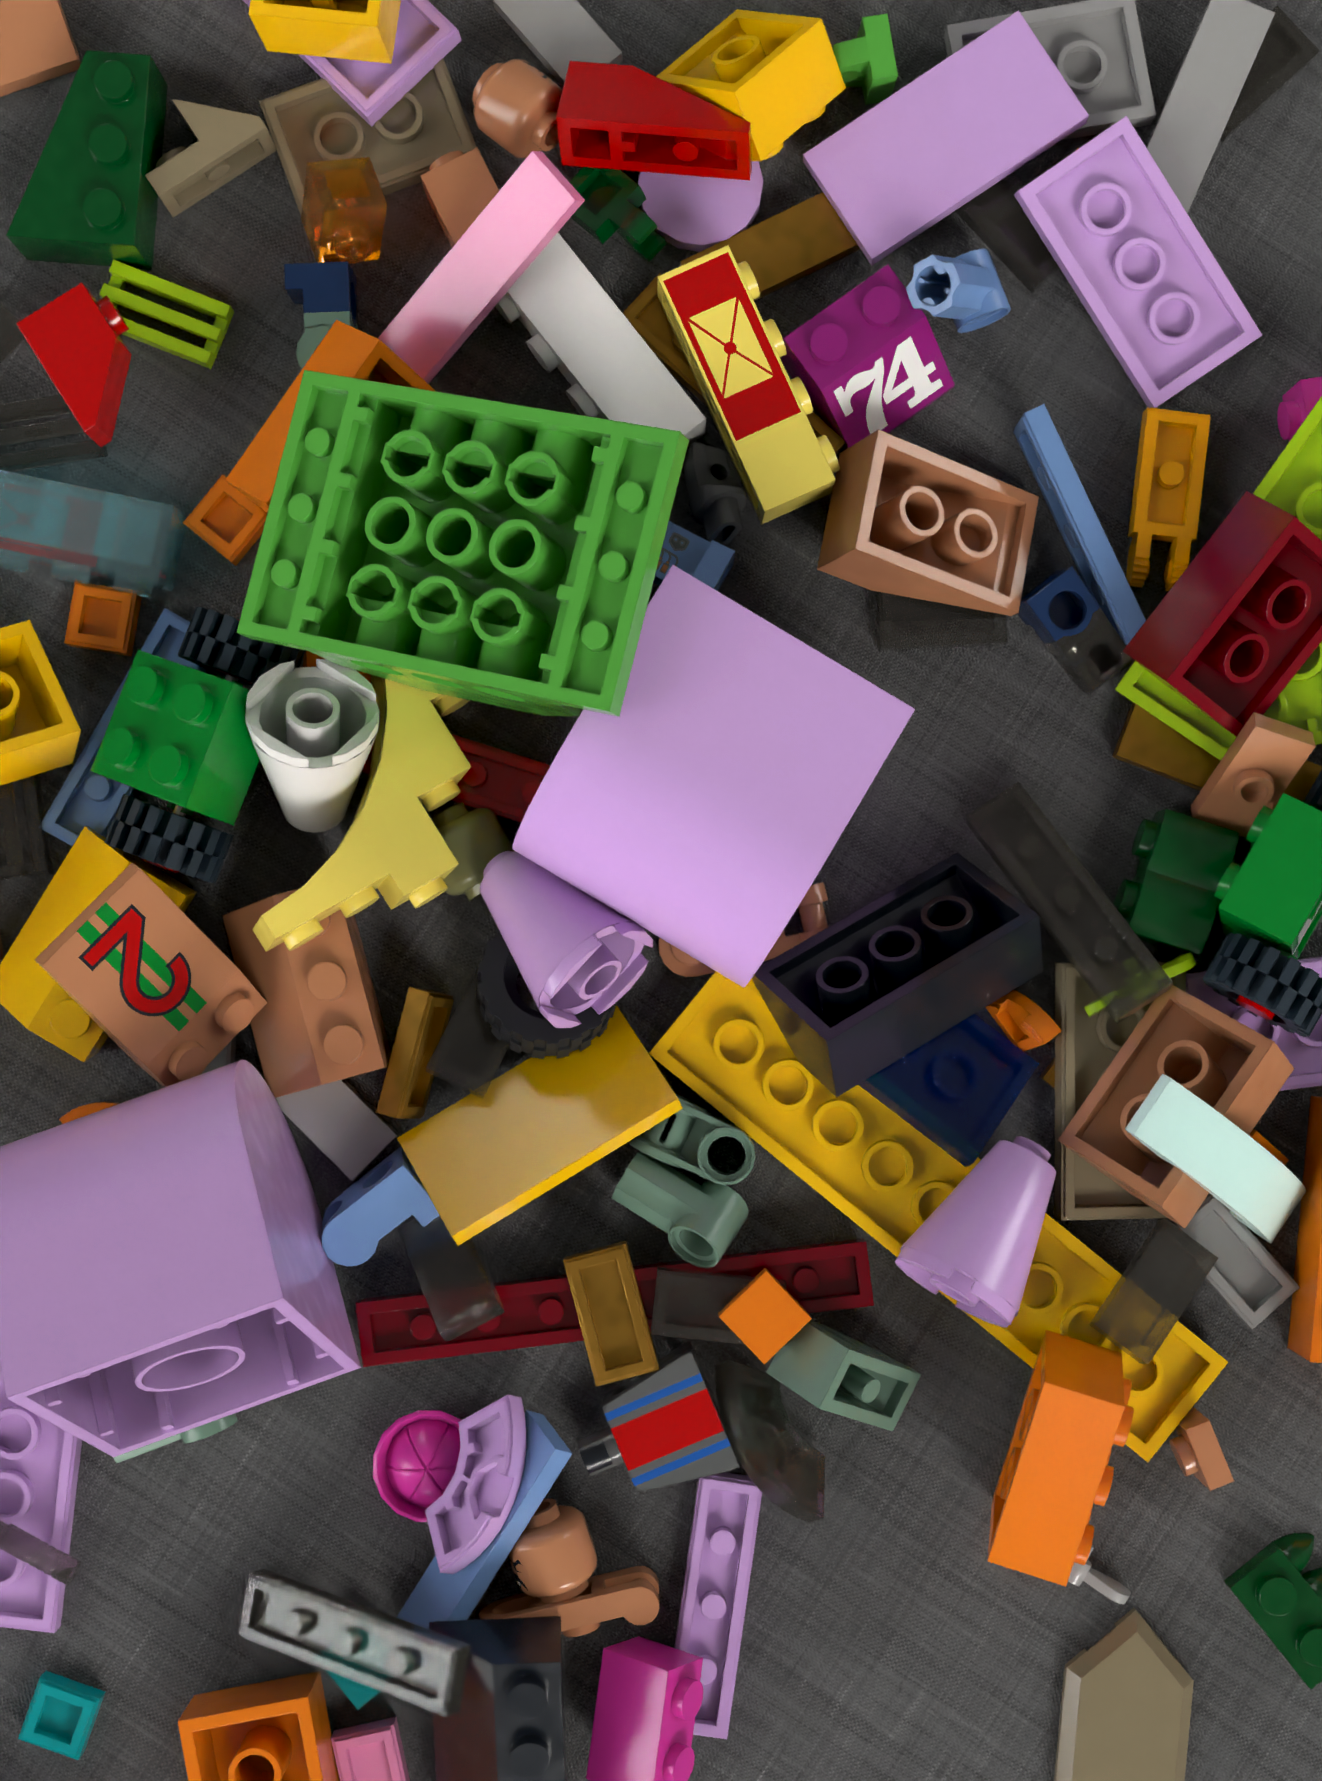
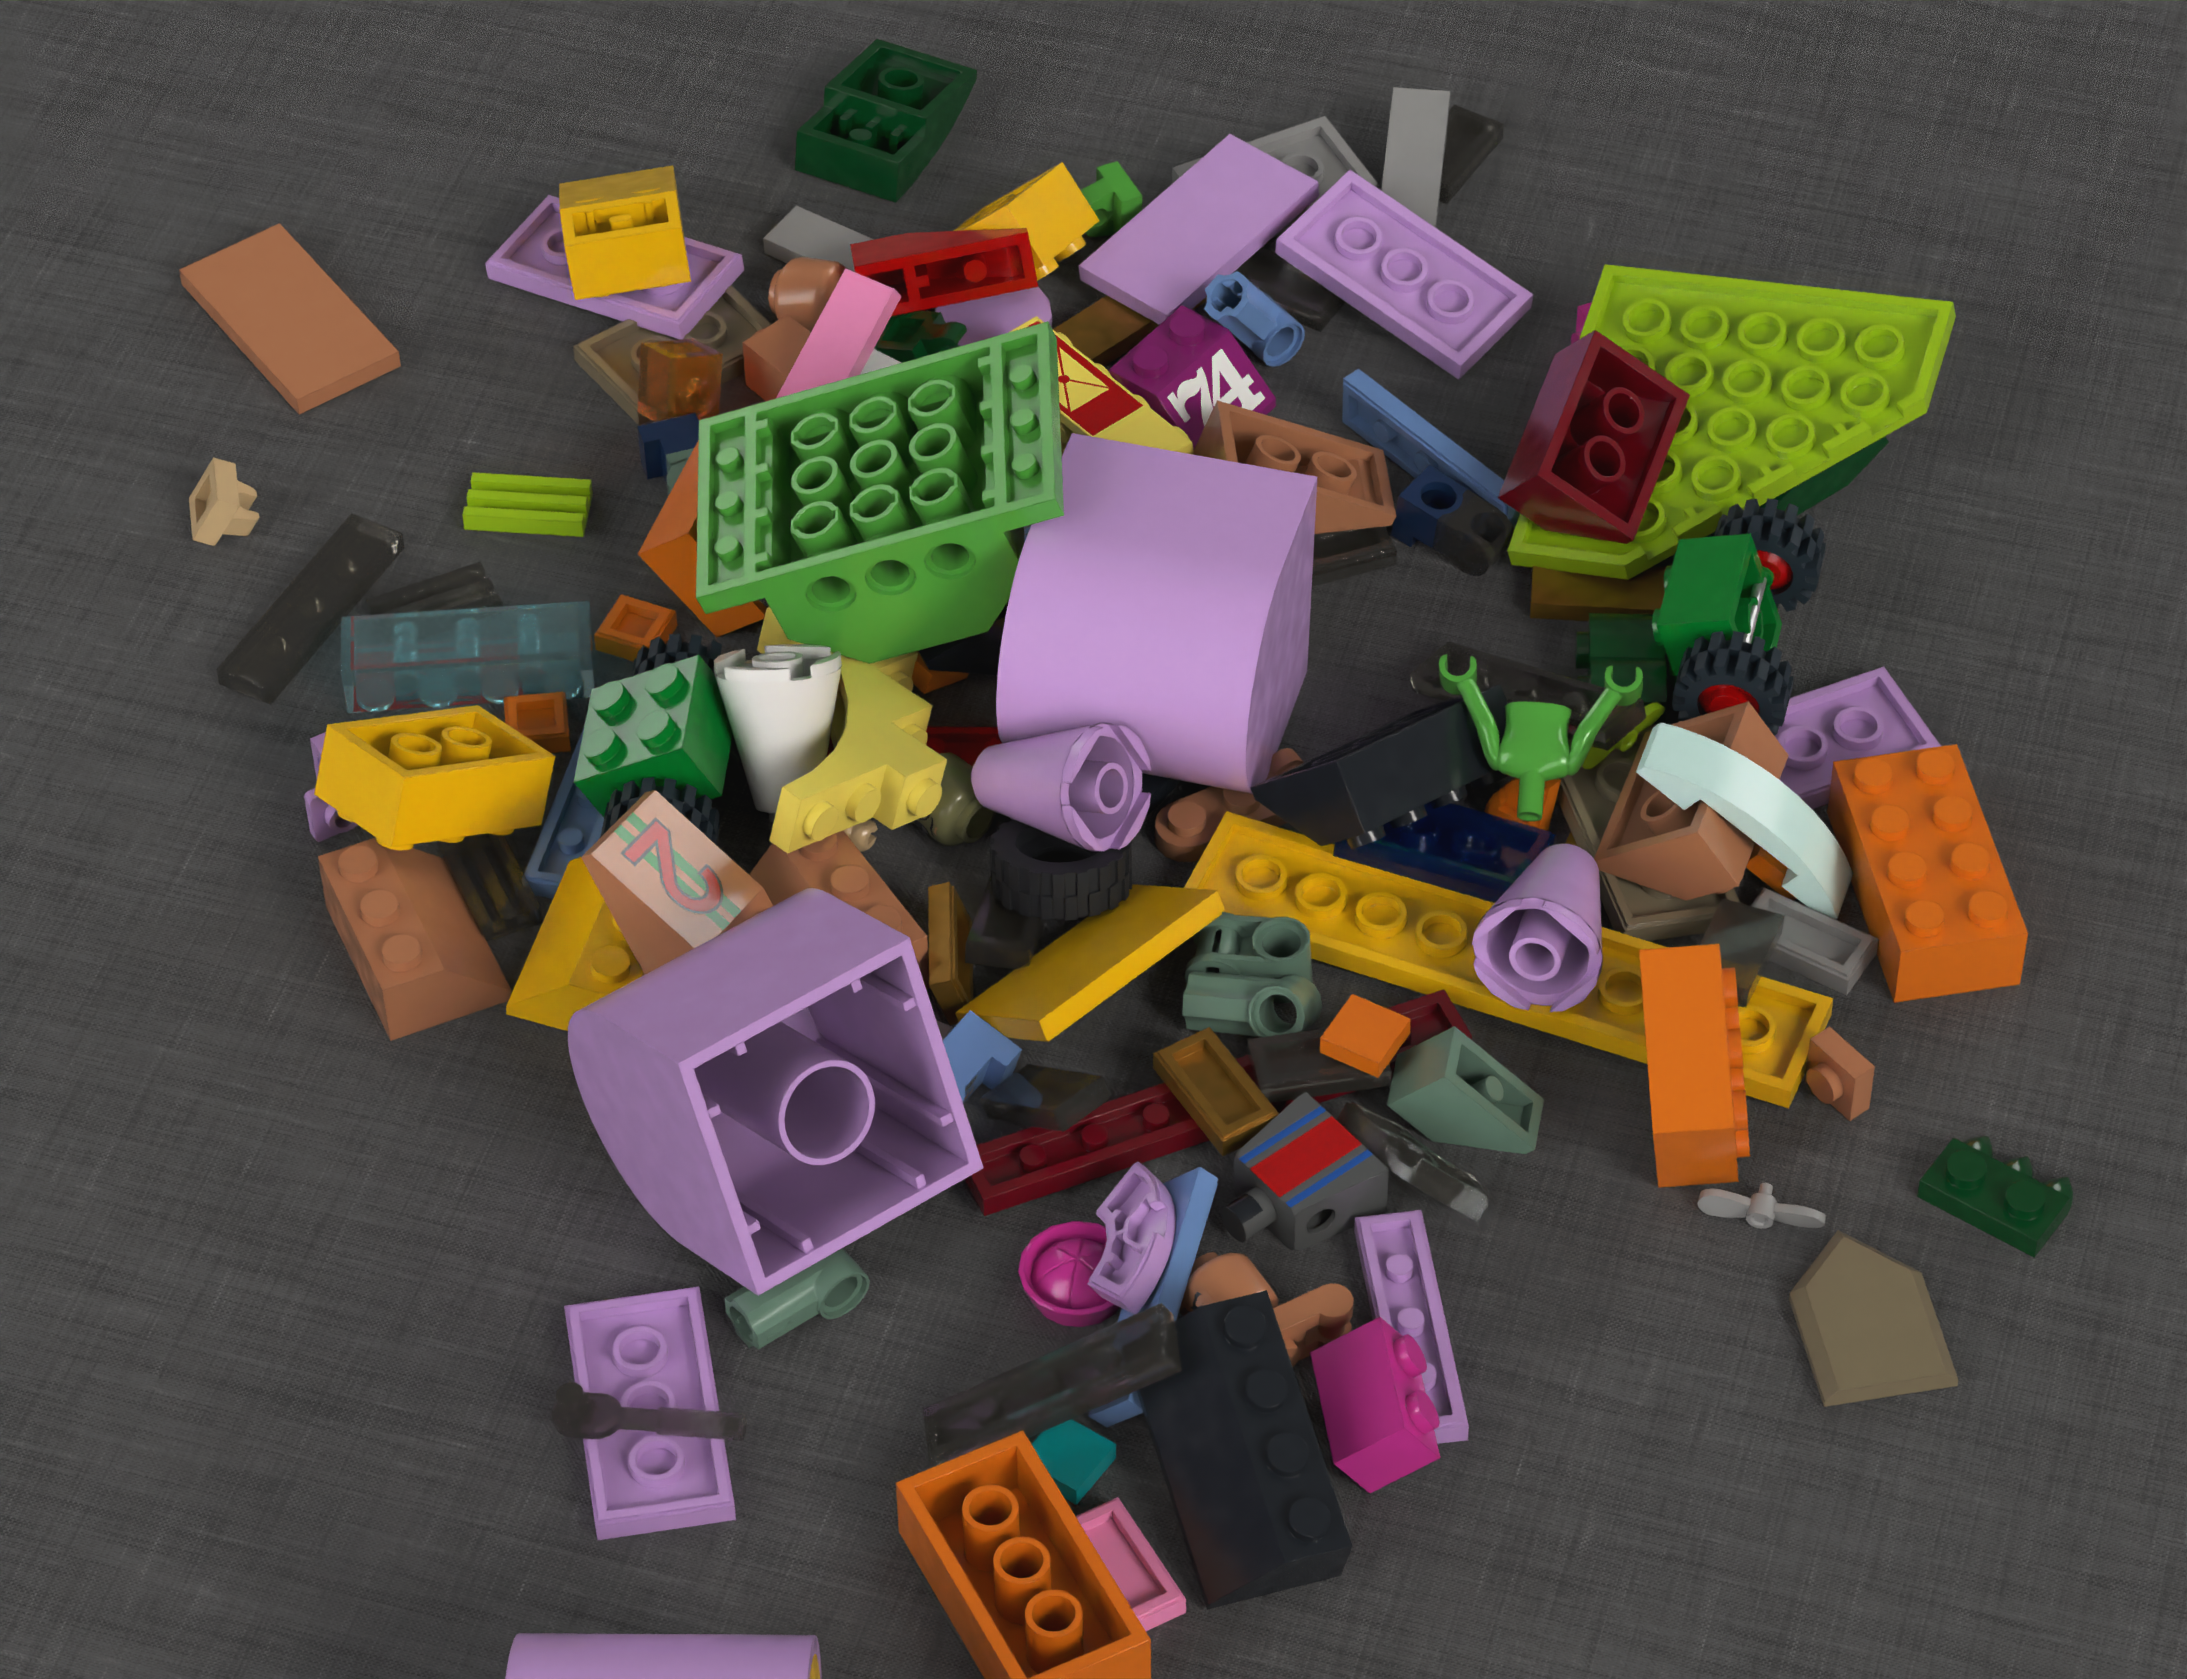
camera: 15 degrees left, 40 degrees down
(61, 1715) = (762, 1585): teal tile -> none
(83, 356) = (466, 524): red slope -> none
(90, 182) = (441, 413): dark green wedge -> none
(224, 149) = (540, 382): dark tan slope -> none
(1051, 995) = (1536, 733): none -> bright green piece
(1167, 490) = (1492, 409): light orange hinge -> none
(1253, 773) = (1648, 549): nougat plate -> none

